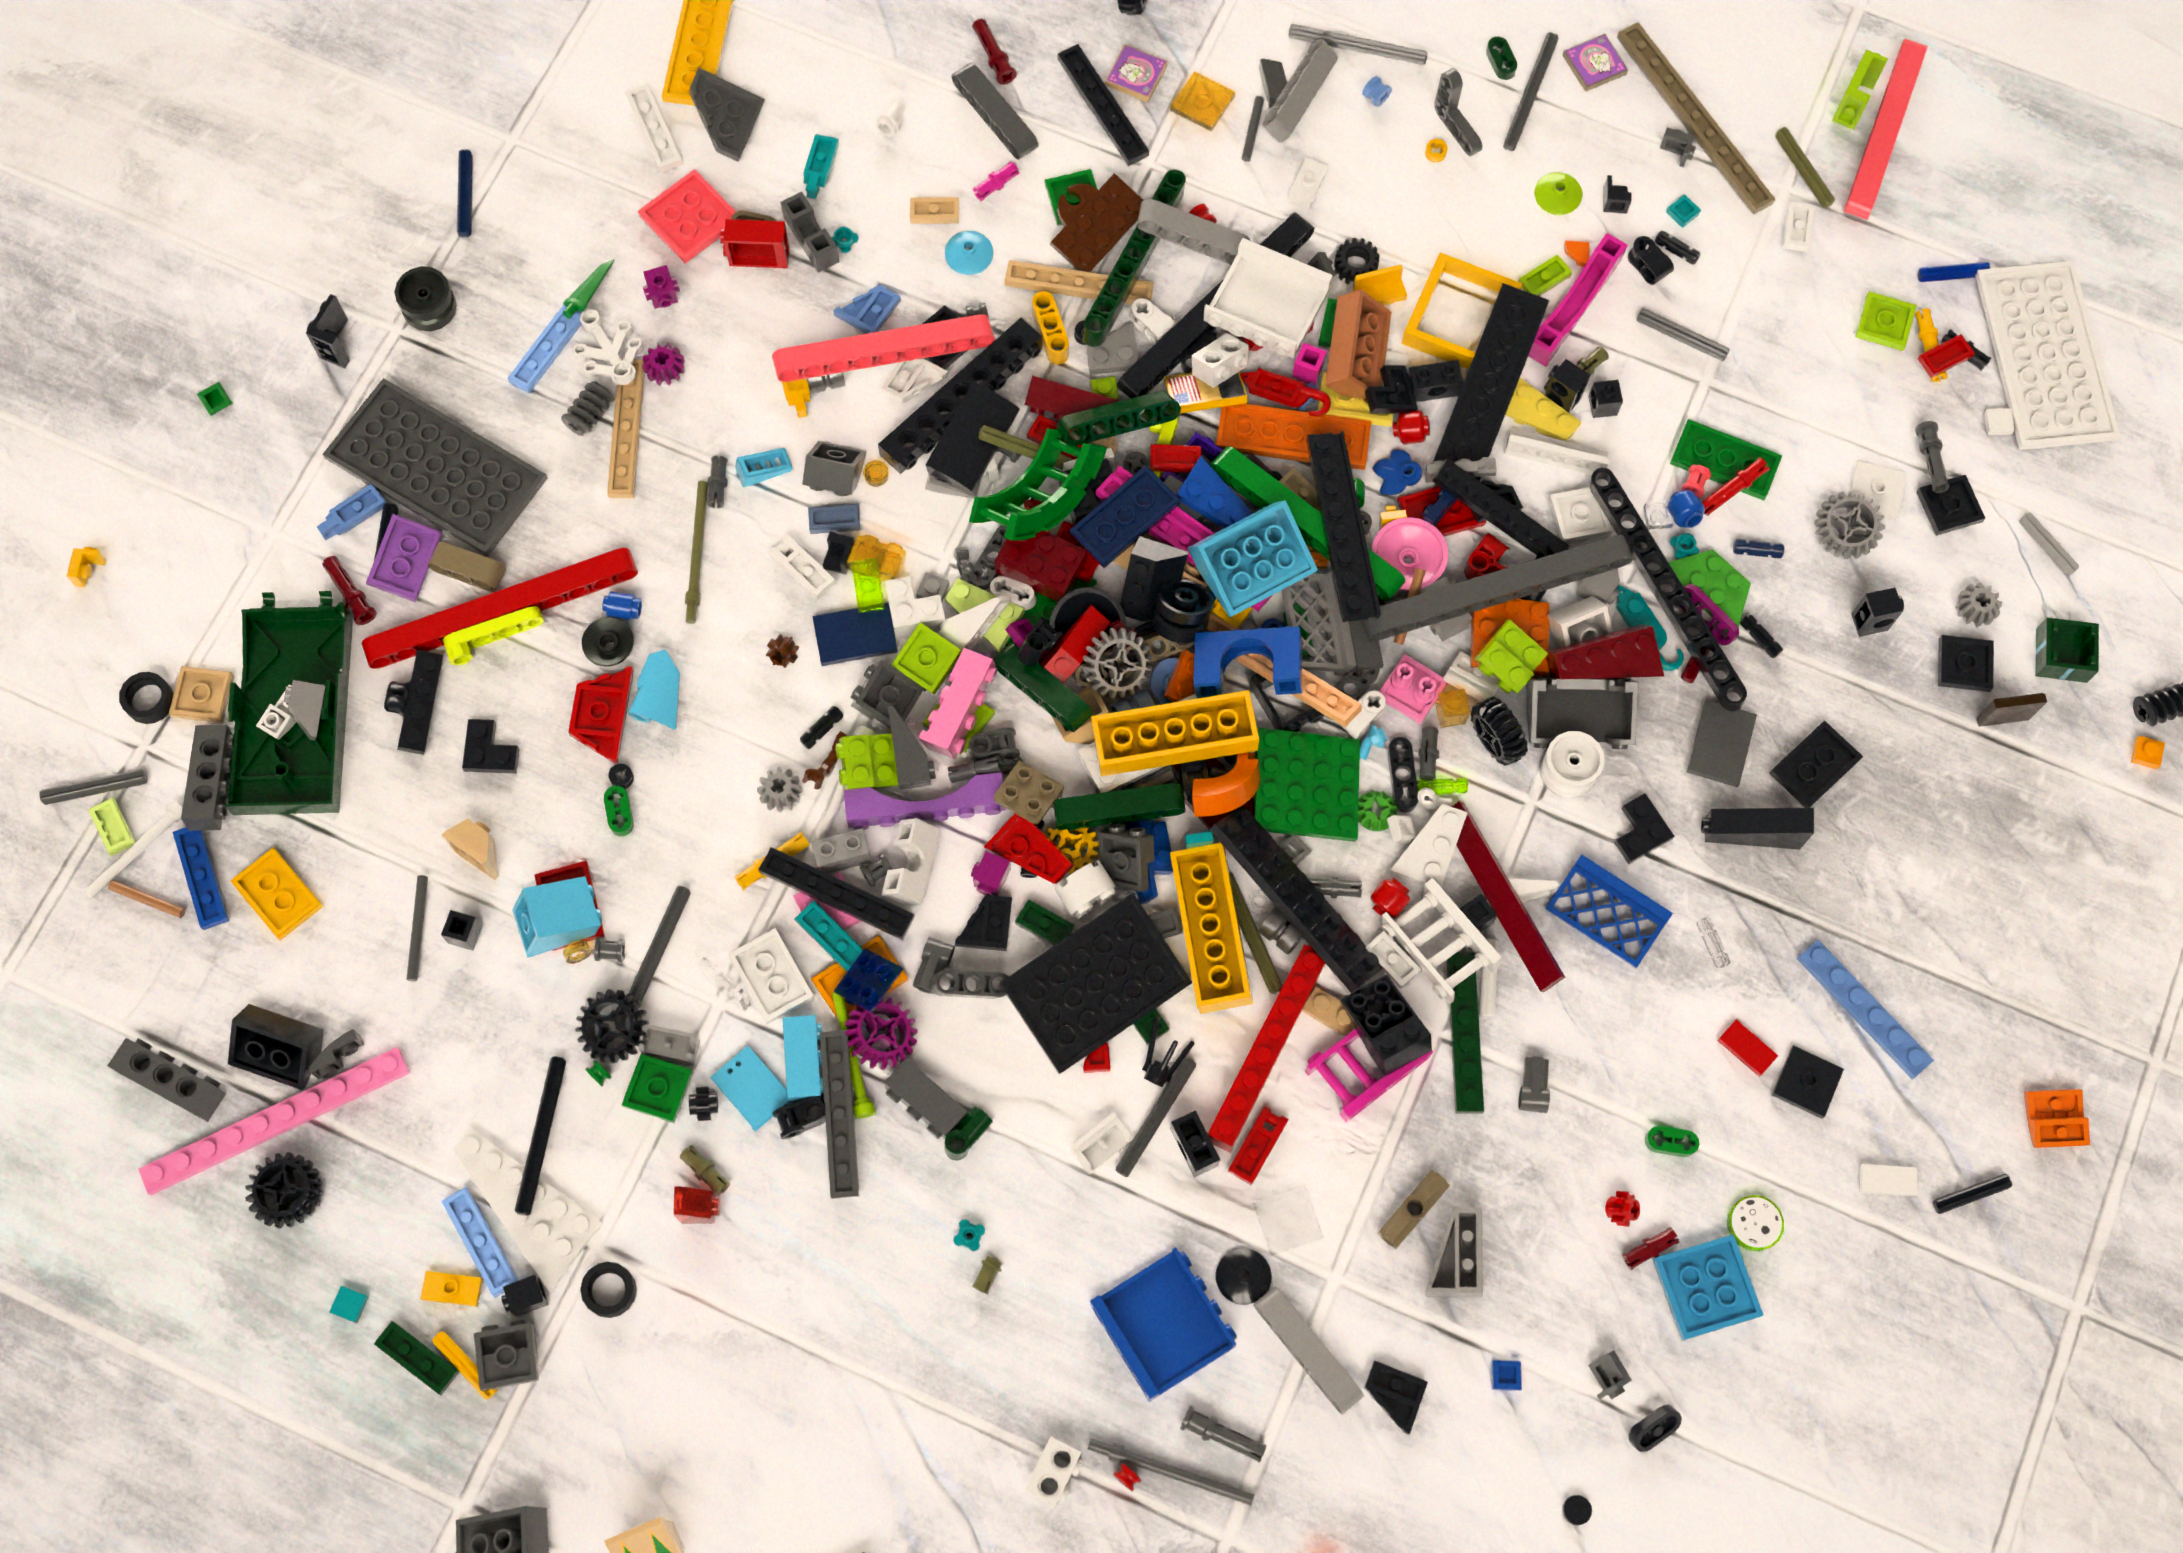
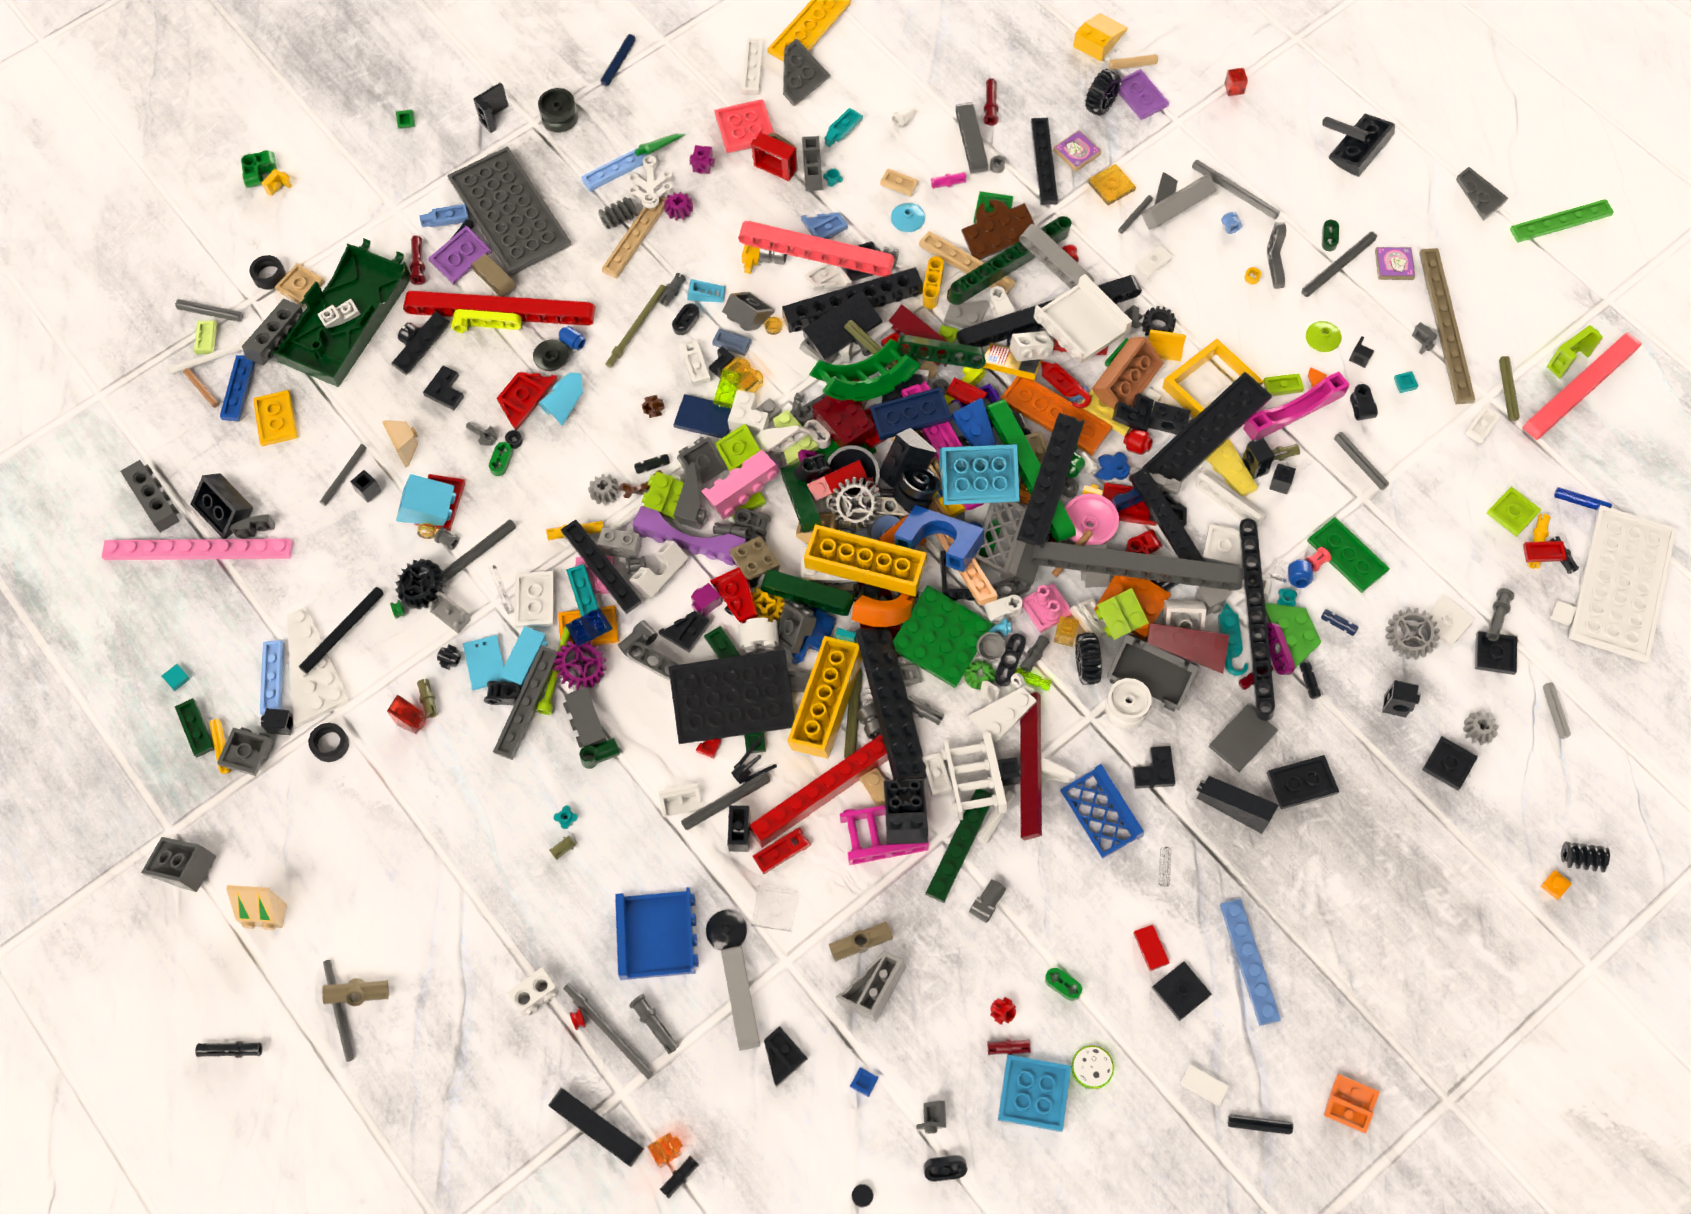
camera: 30 degrees right, 5 degrees down
(48, 546) = (255, 165): none -> green piece
(284, 1168) = (176, 601): black gear -> none
(305, 705) = (350, 310): light grey slope -> none
(451, 1289) = (239, 697): yellow plate -> none
(574, 787) = (482, 433): none -> dark grey bar
(657, 1088) = (427, 635): green plate -> none
(758, 516) = (684, 320): none -> black plate
(1045, 126) = (1000, 161): none -> flat silver bush
(1309, 364) = (1089, 372): dark pink brick -> none
(1372, 485) = (1090, 467): none -> white pin
(1373, 769) = (992, 646): none -> light grey hair
(1390, 897) = (956, 733): red head -> none
(1677, 247) = (1388, 403): black axle -> none
(1742, 480) = (1344, 572): red pin -> none
(2011, 709) = (1465, 807): dark brown tile -> none
(2067, 650) = (1530, 787): dark green container -> none

